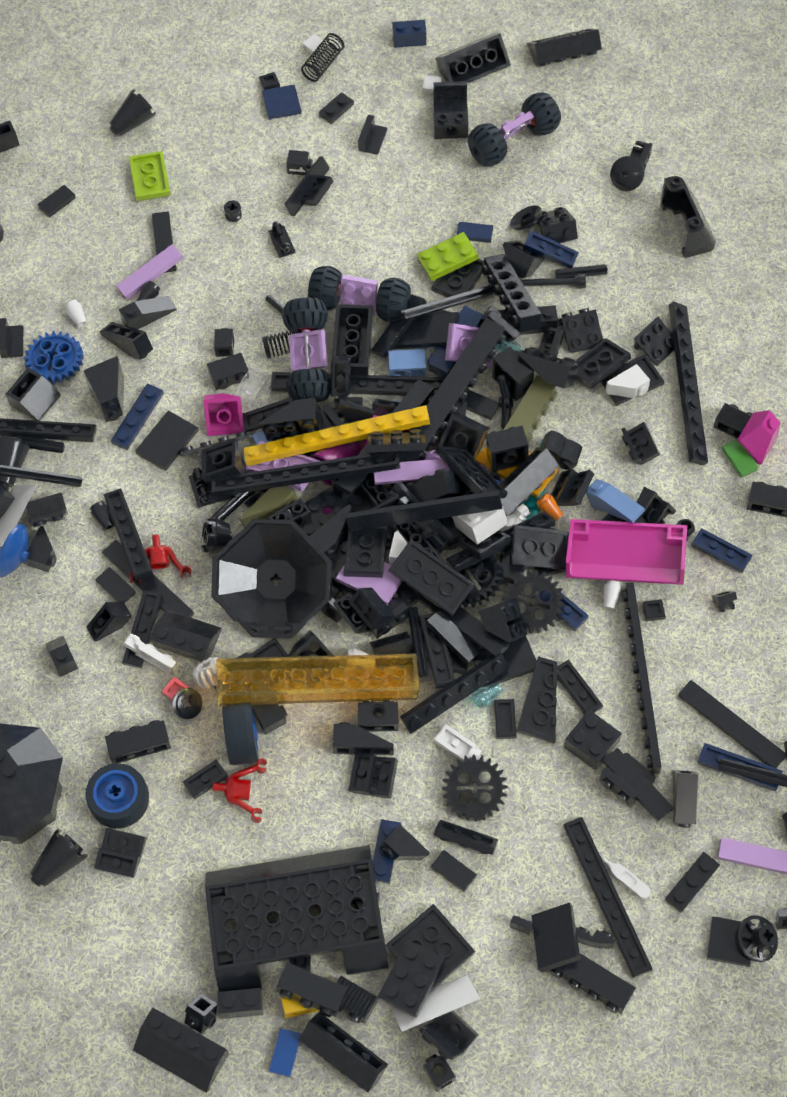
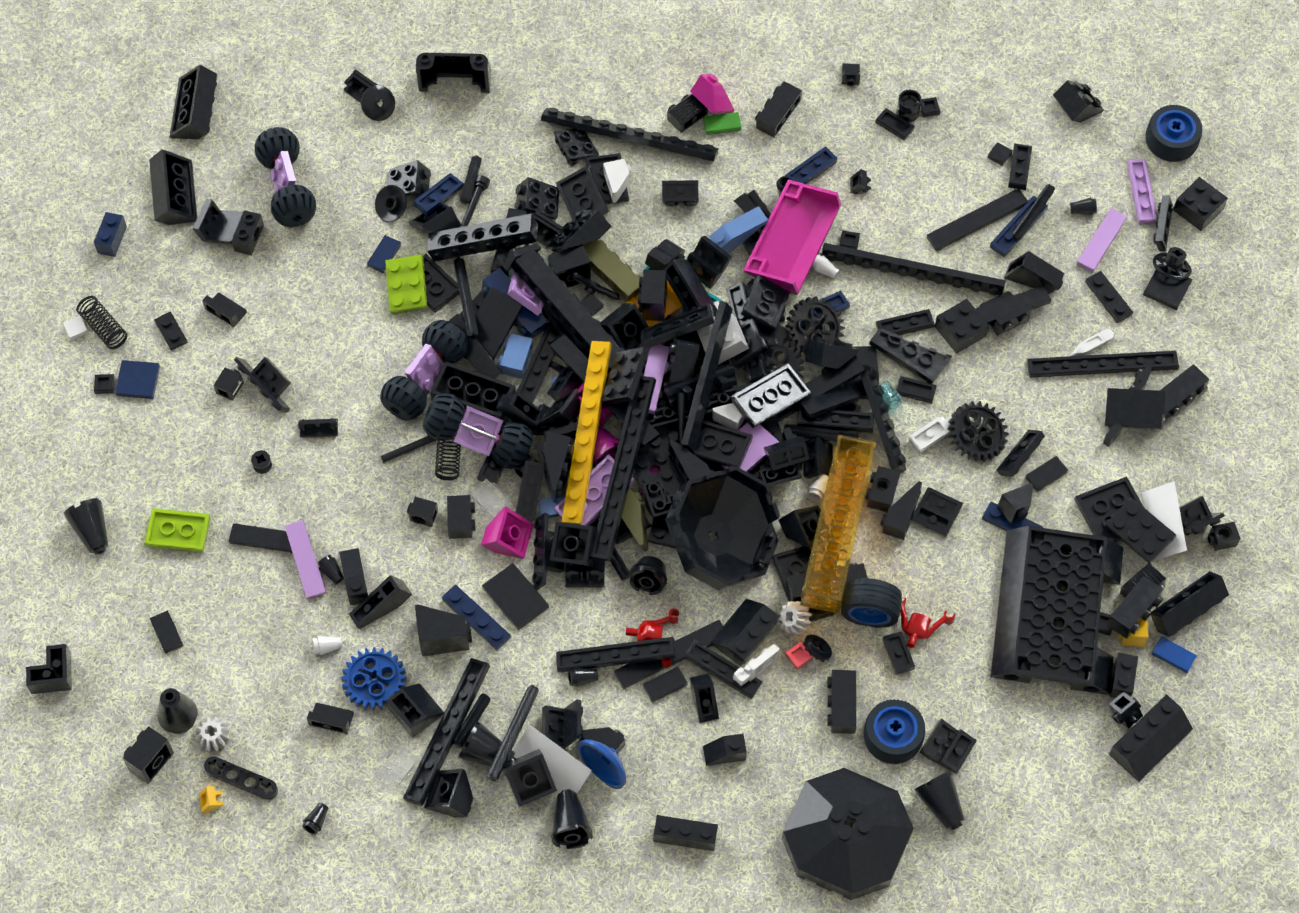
camera: 75 degrees left, 0 degrees up
(428, 83) = (182, 236): white tile -> none
(548, 504) = (718, 285): orange cone -> none

